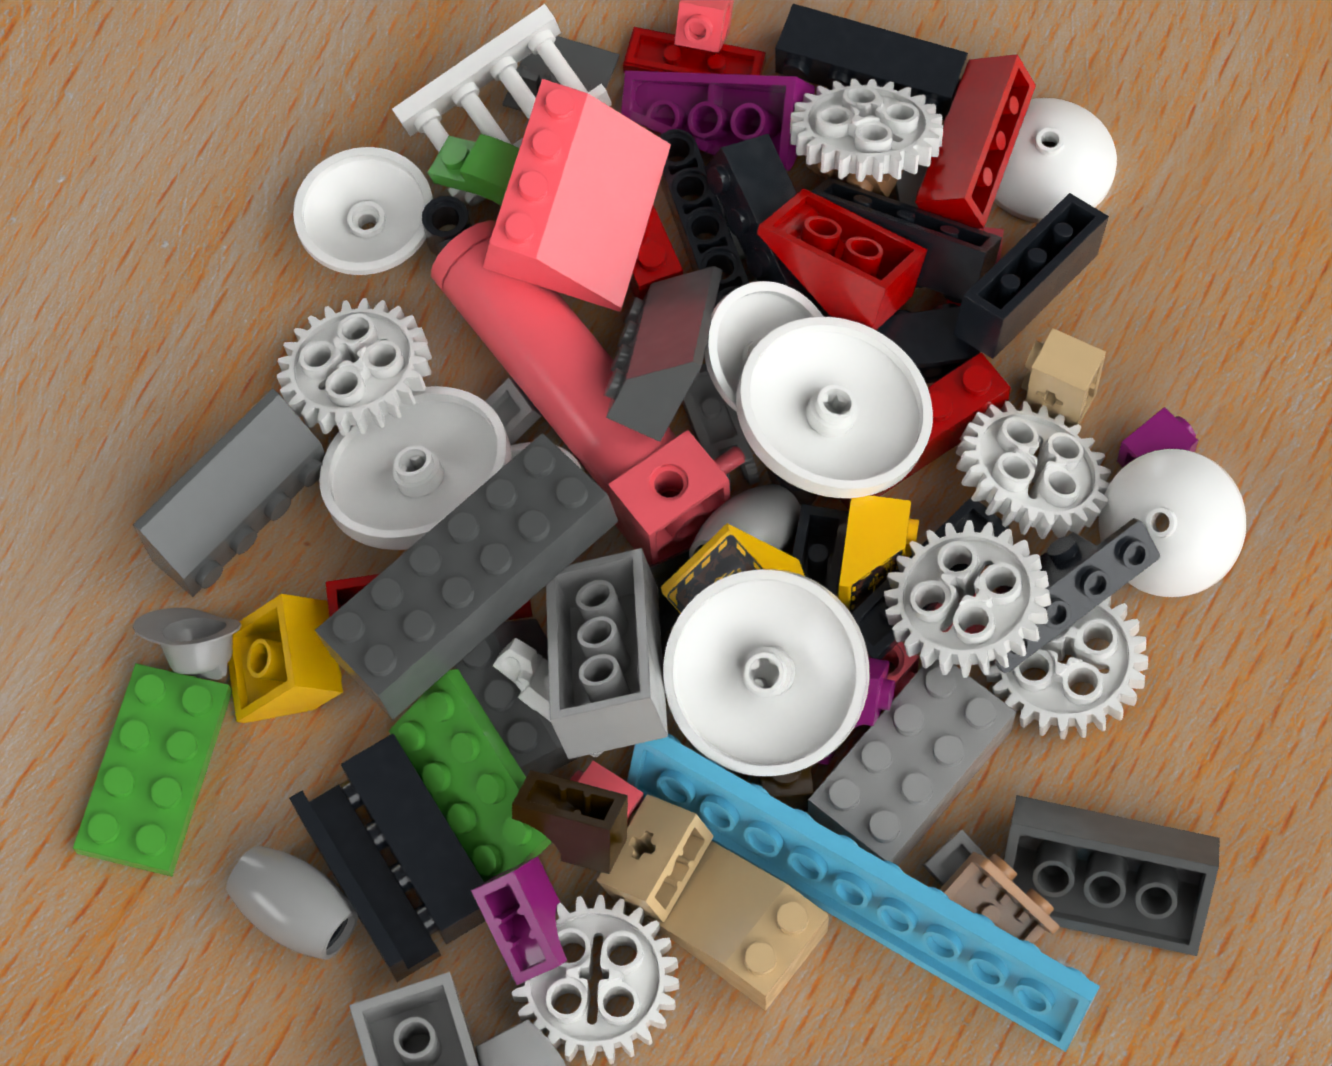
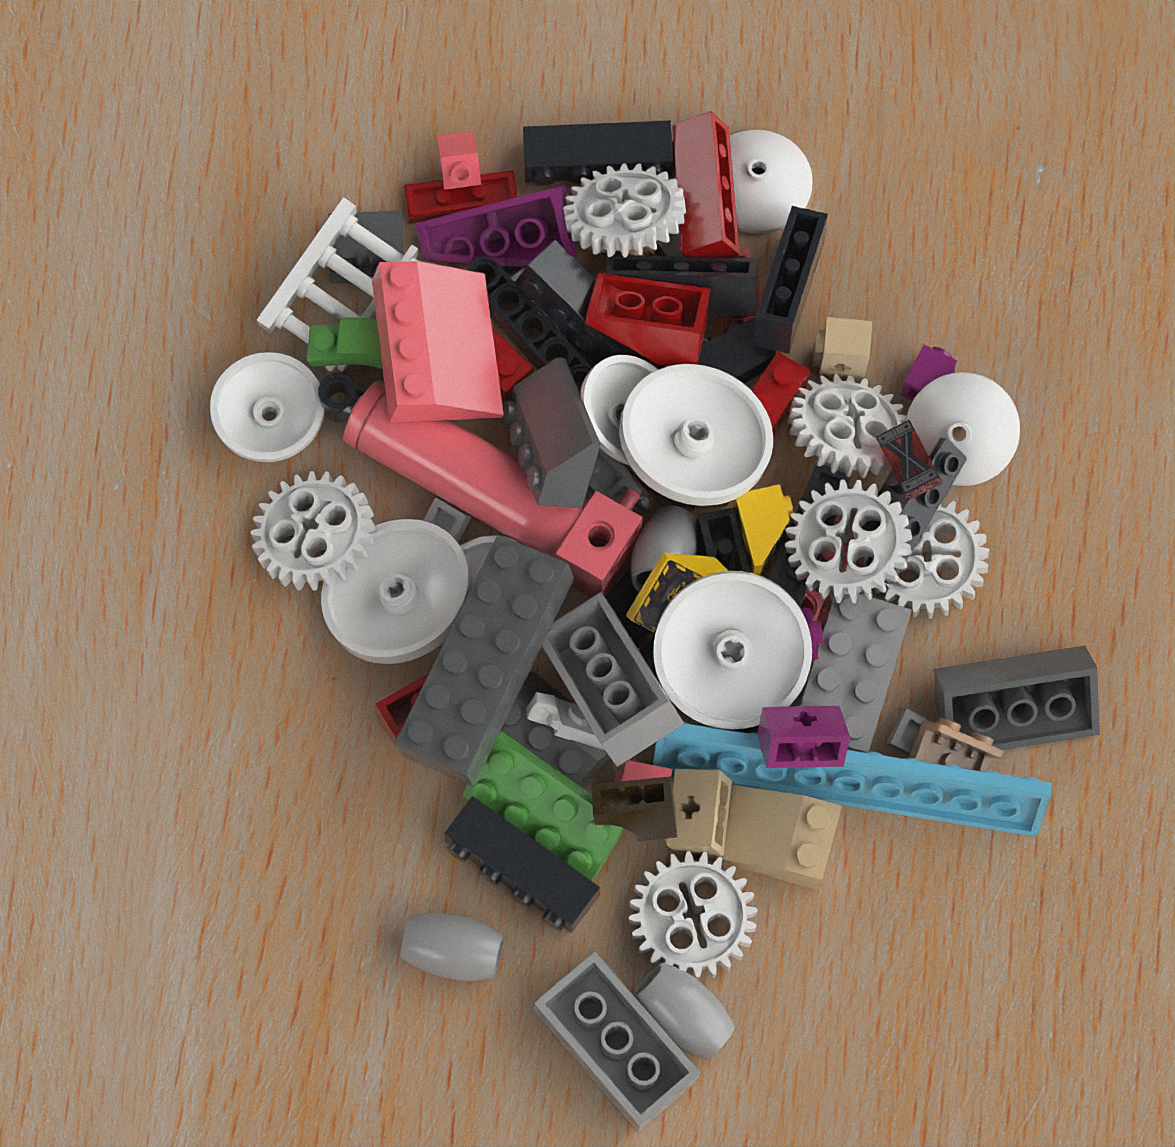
camera: 30 degrees left, 5 degrees up
(153, 770) = (299, 890): bright green plate -> none
(190, 640) = (285, 782): light grey piece -> none
(231, 494) = (270, 664): slope -> none
(281, 661) = (360, 772): yellow slope -> none
(366, 881) = (494, 907): black fence -> none
(522, 919) = (628, 893): magenta arch -> none
(808, 809) = (803, 736): none -> magenta brick
(1082, 529) = (908, 460): none -> tile

